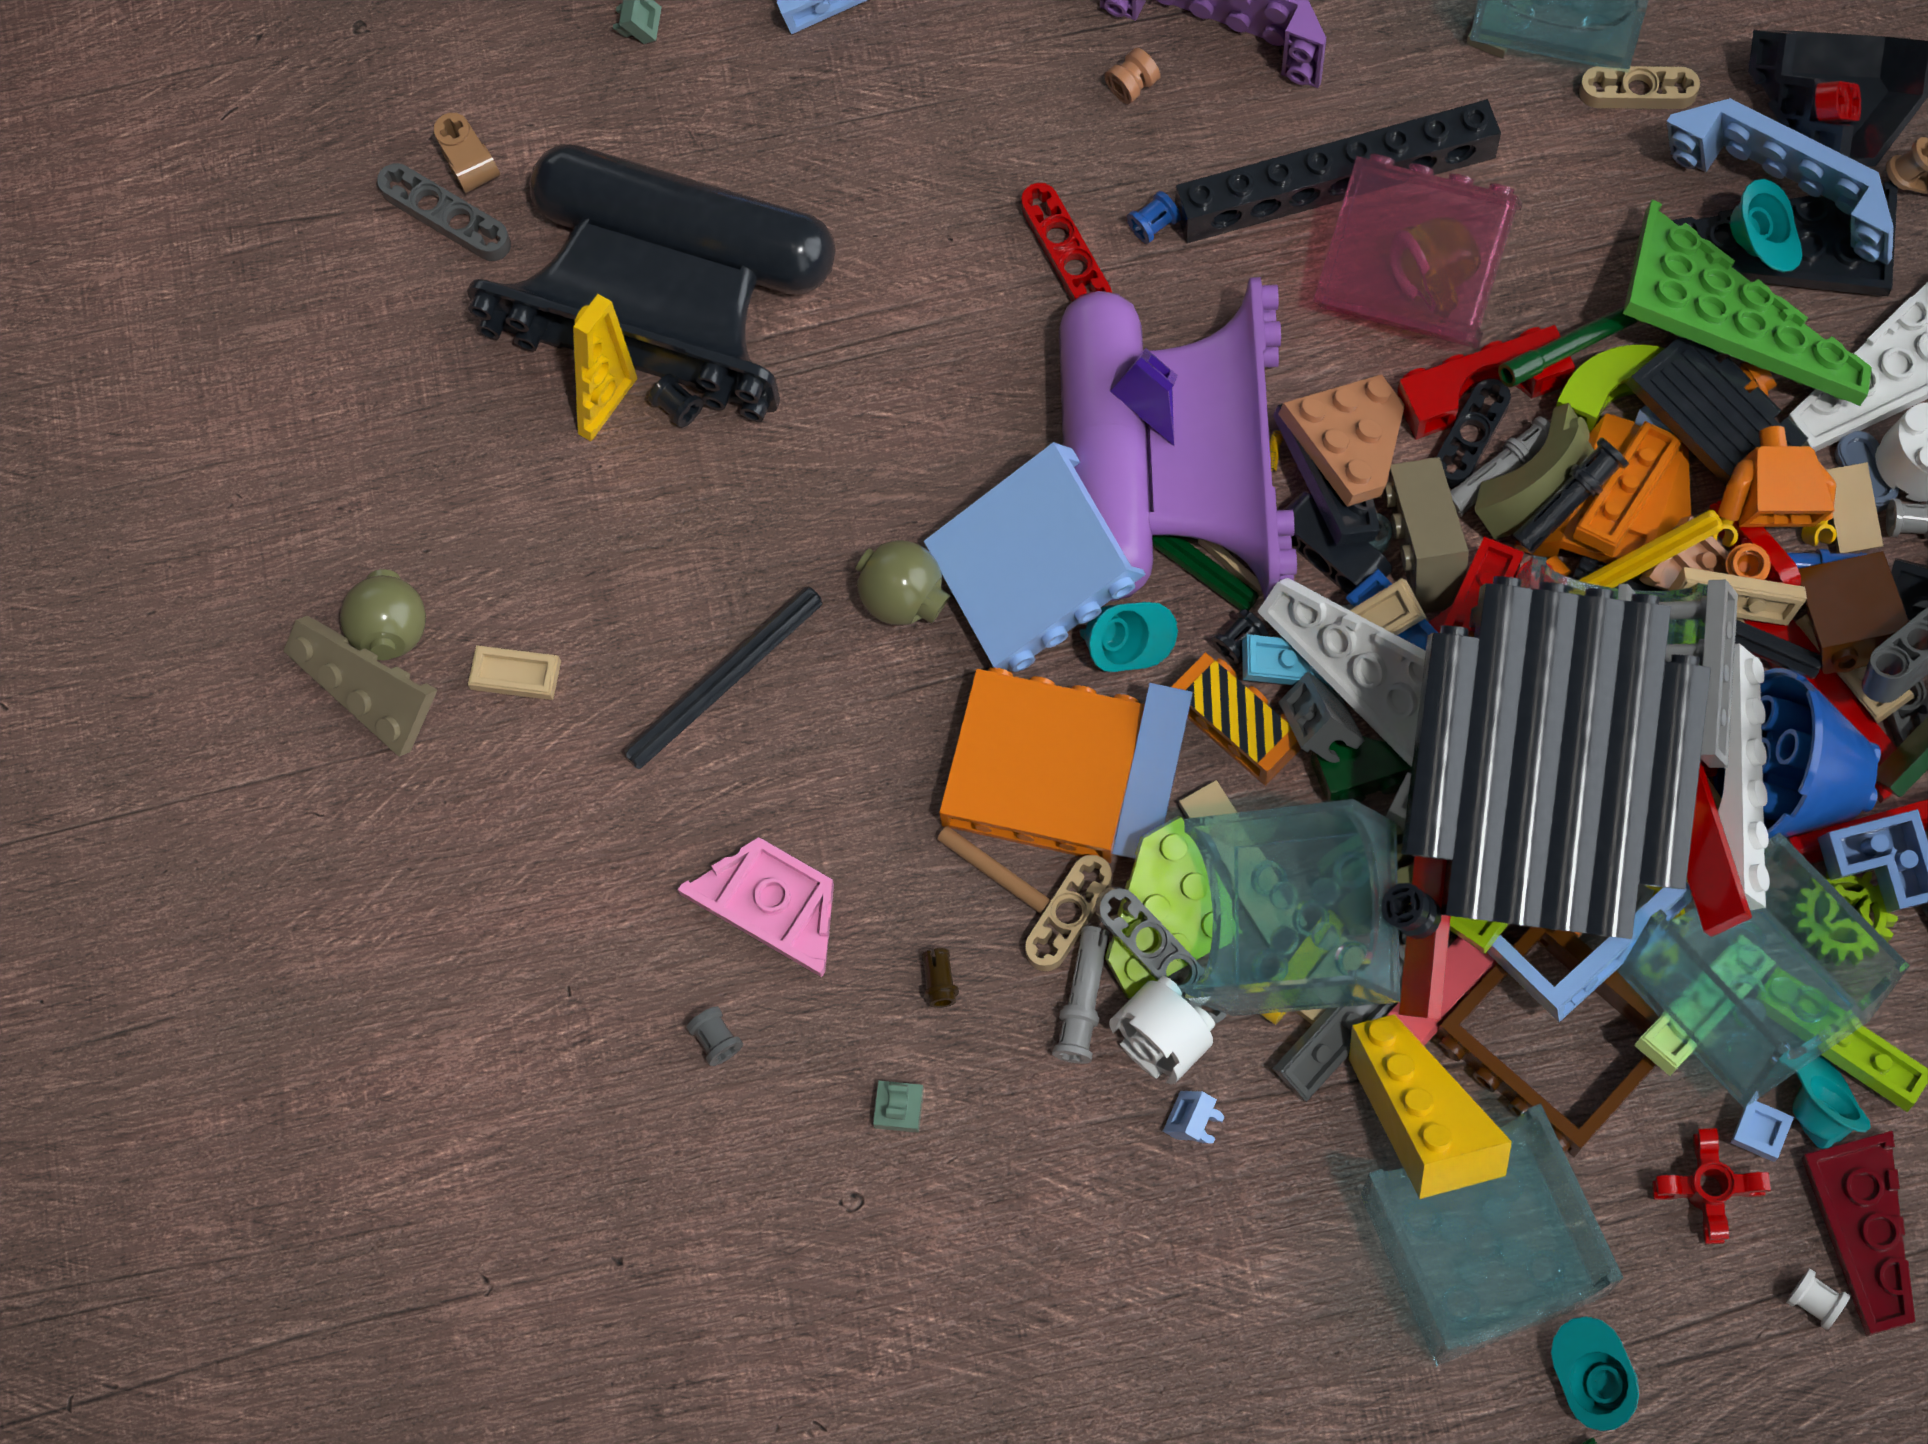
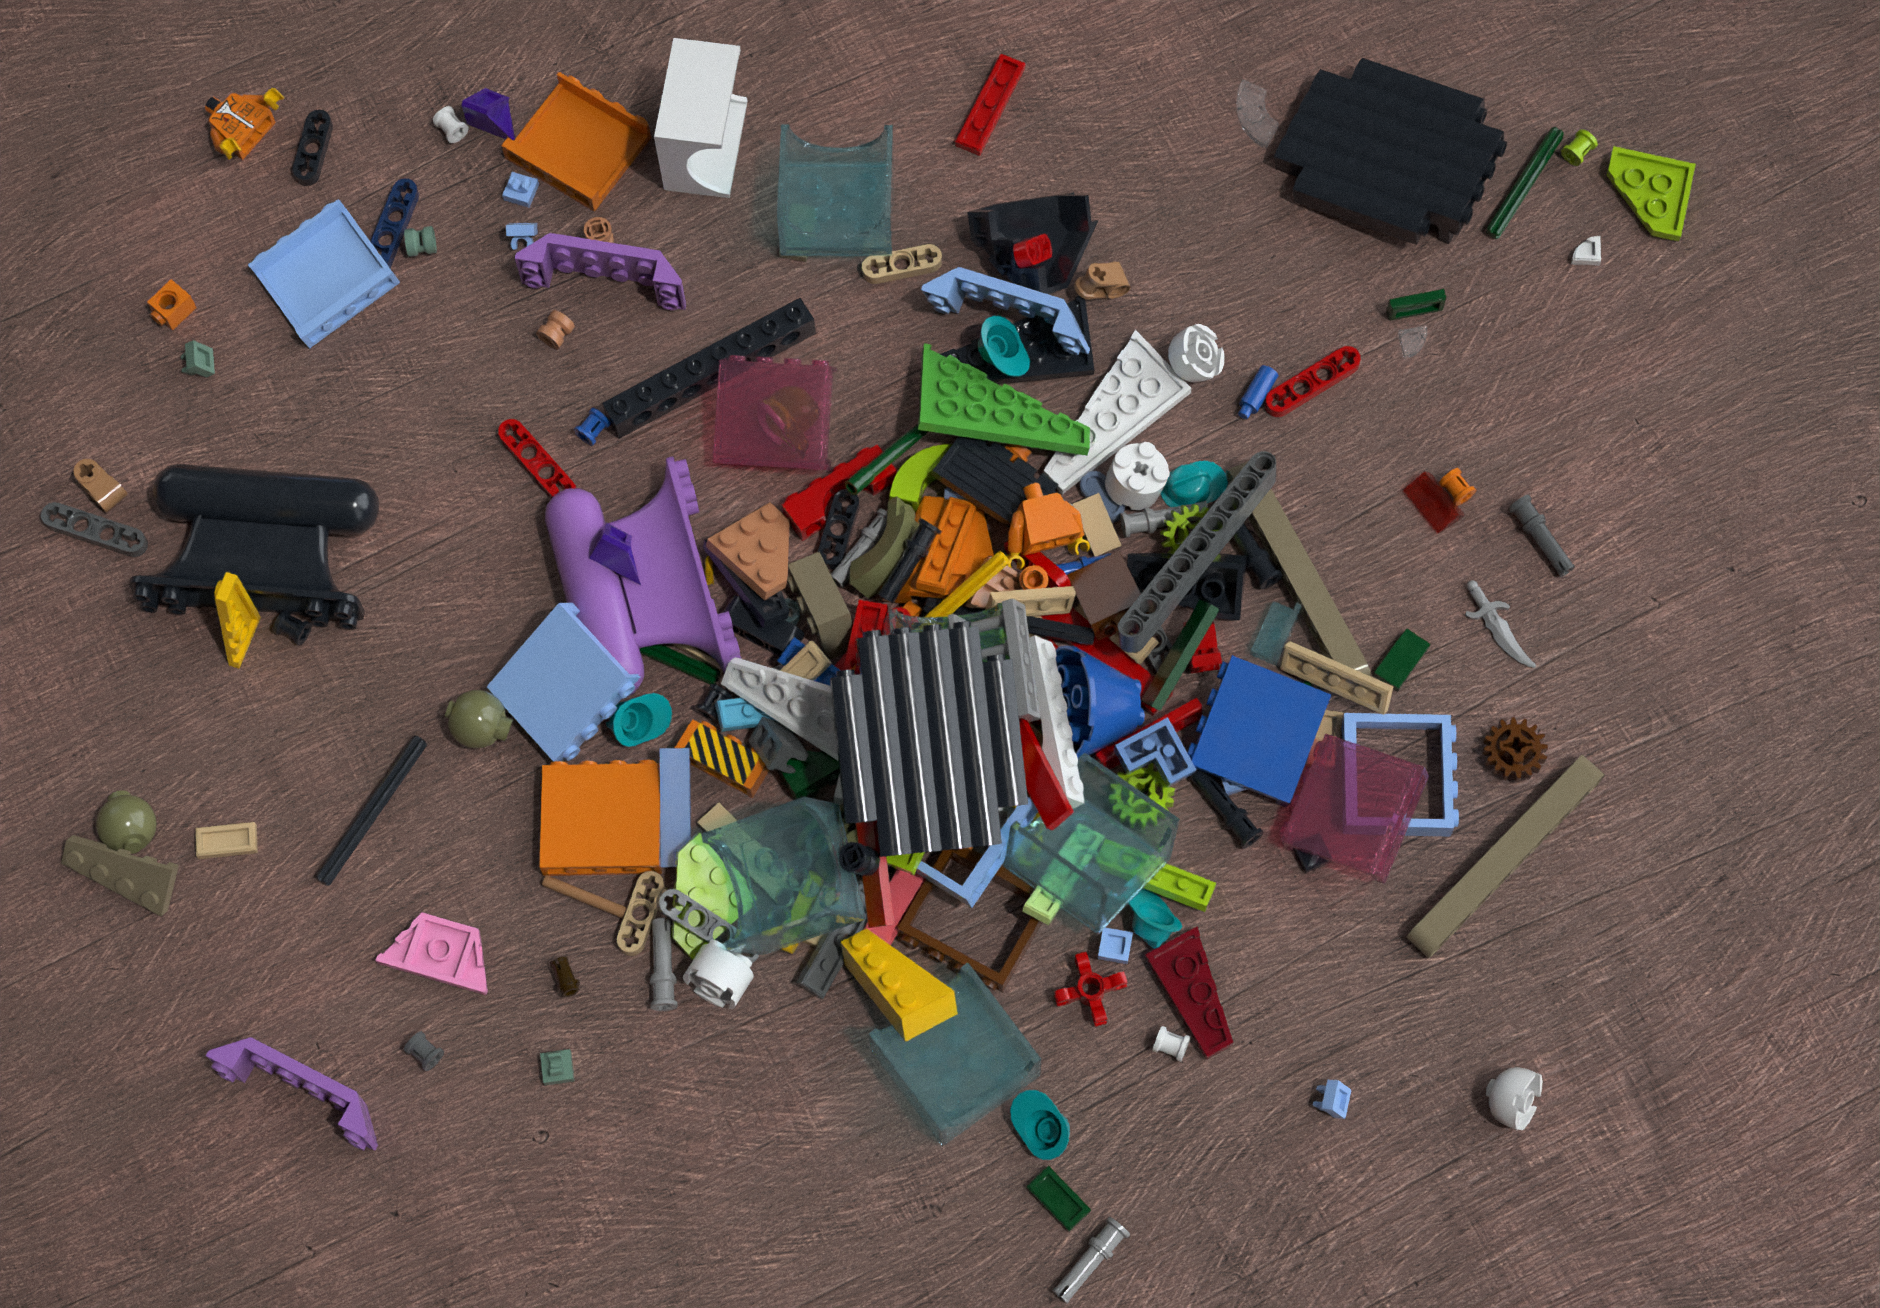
camera: 20 degrees left, 0 degrees up
(454, 985) = (239, 1058): none -> medium lavender slope
(1191, 1115) = (750, 1025): light blue tile -> none

